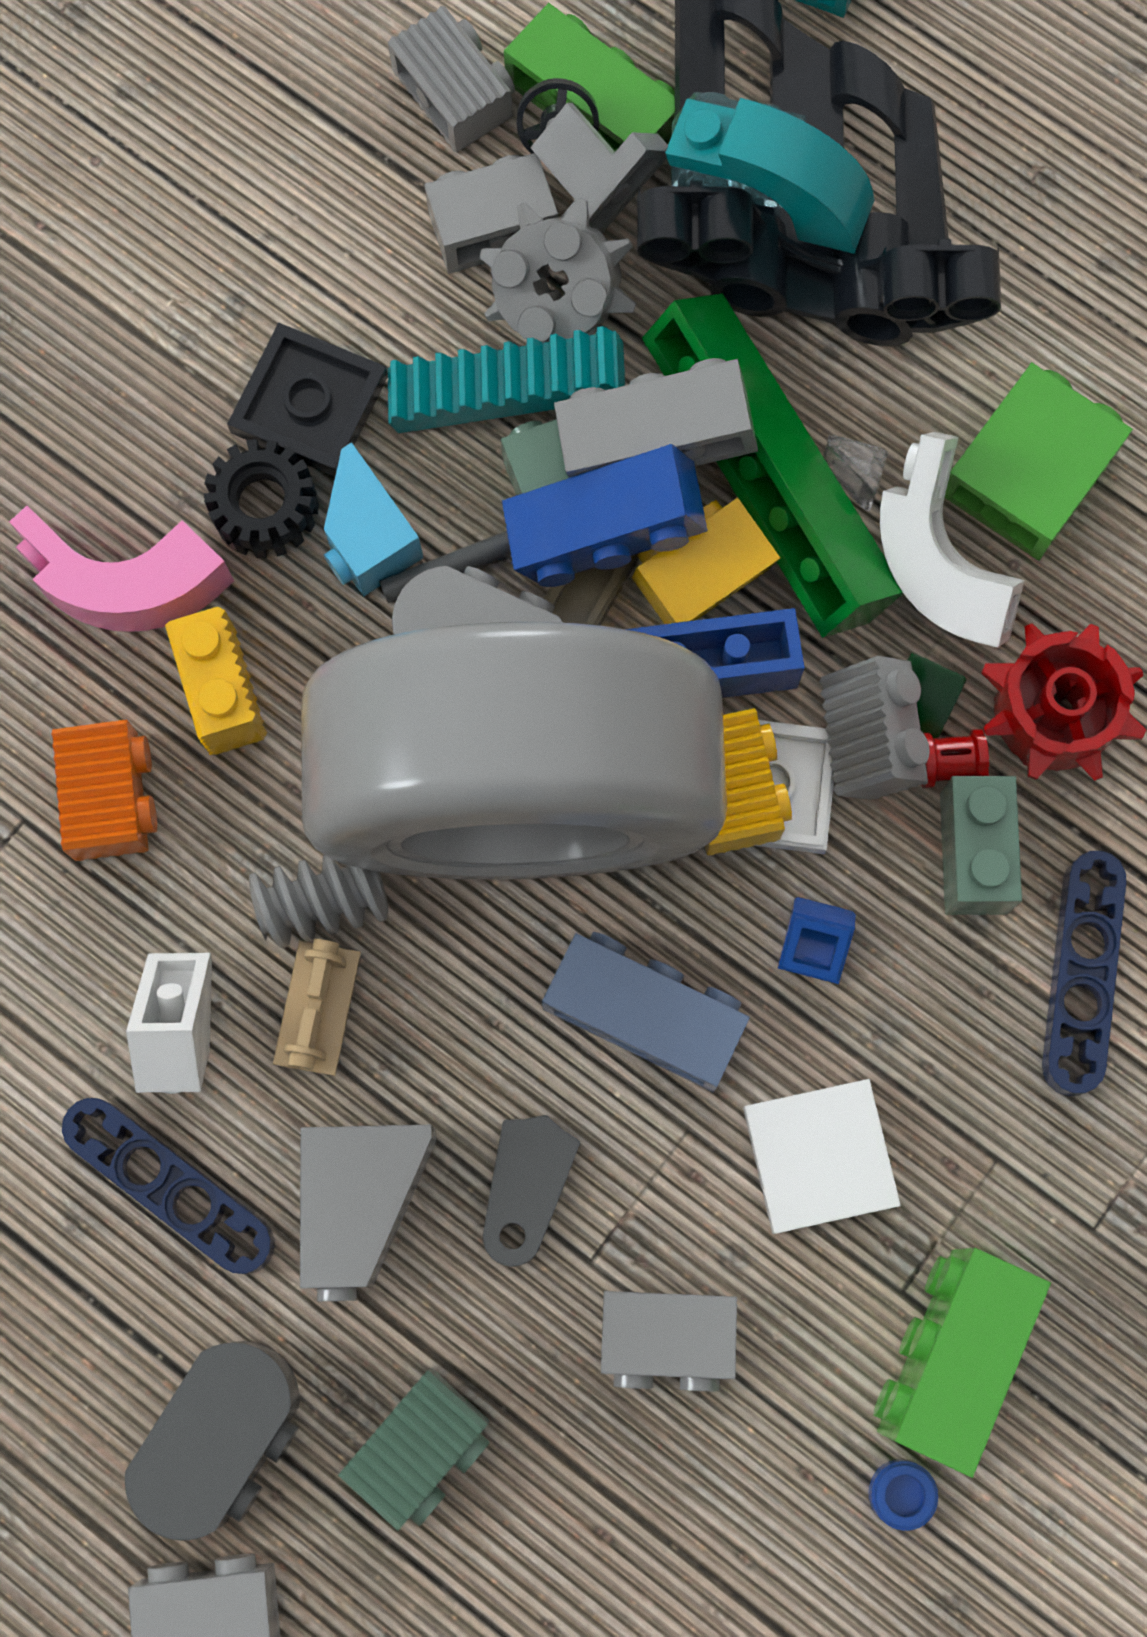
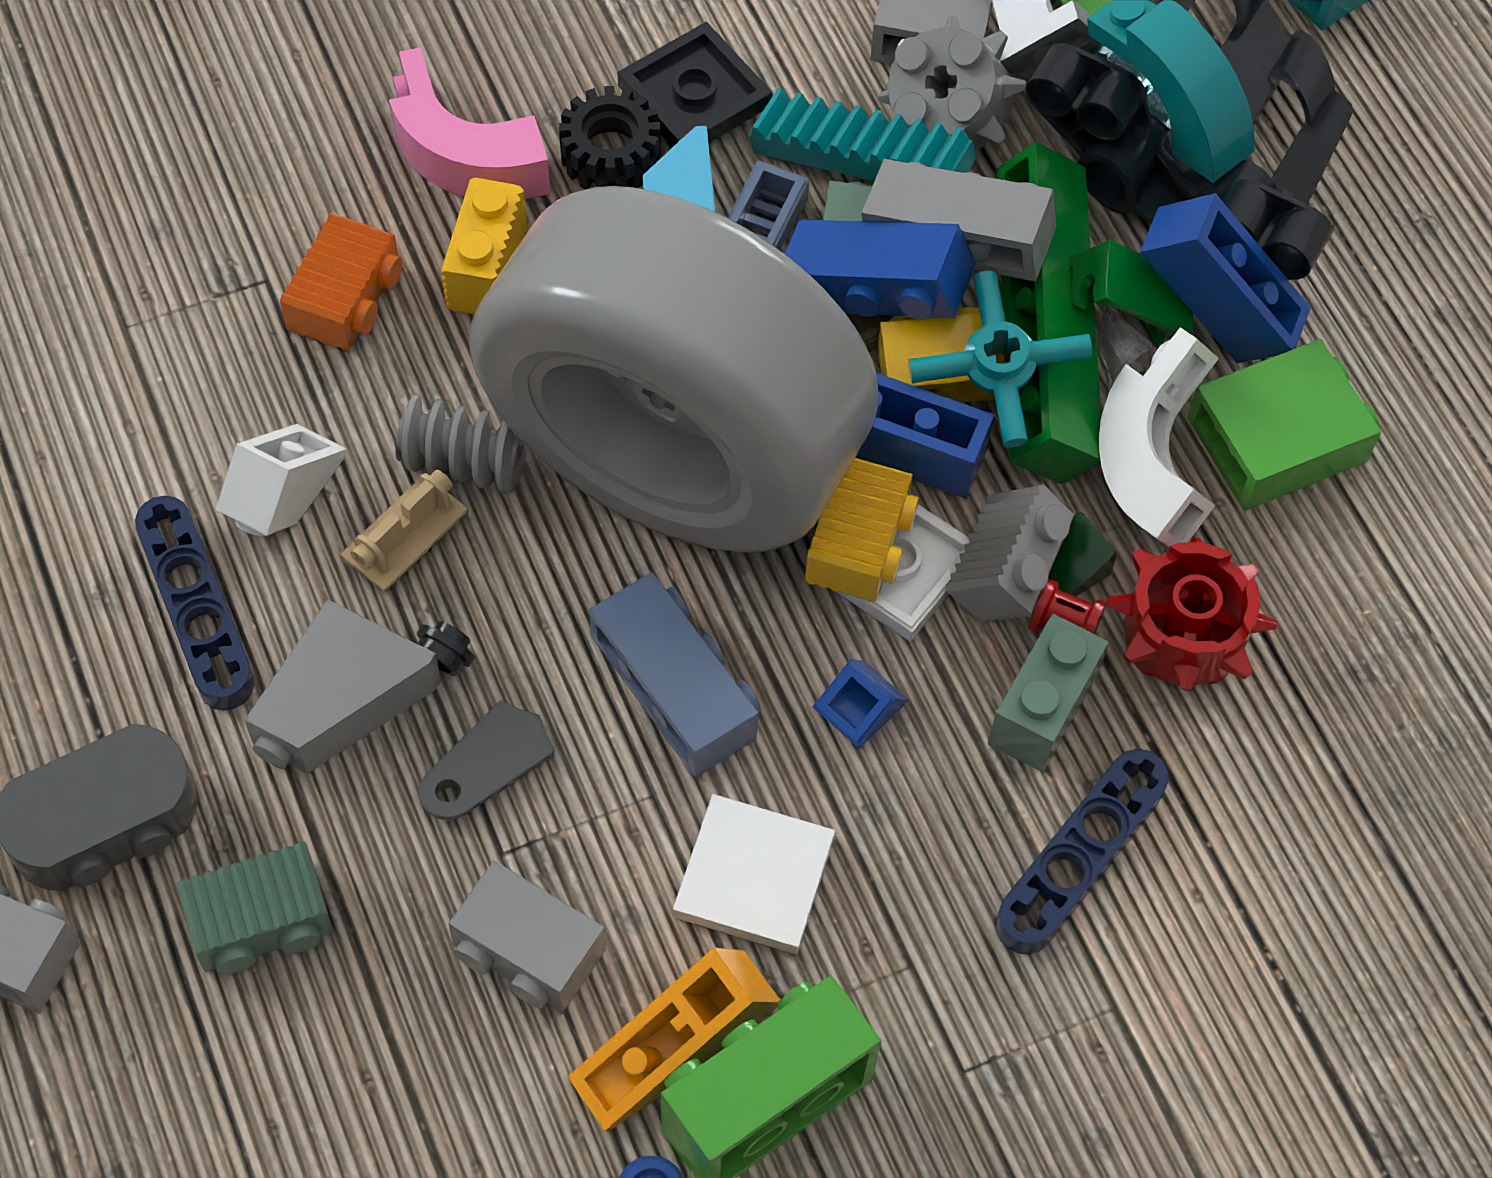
camera: 25 degrees right, 15 degrees down
(426, 1104) = (448, 645): none -> black plate
(453, 462) = (775, 185): none -> sand blue slope
(790, 532) = (997, 378): none -> teal bar
(841, 404) = (1131, 285): none -> green hinge
(848, 1350) = (673, 1029): none -> light orange slope
(922, 352) = (1225, 278): none -> blue brick

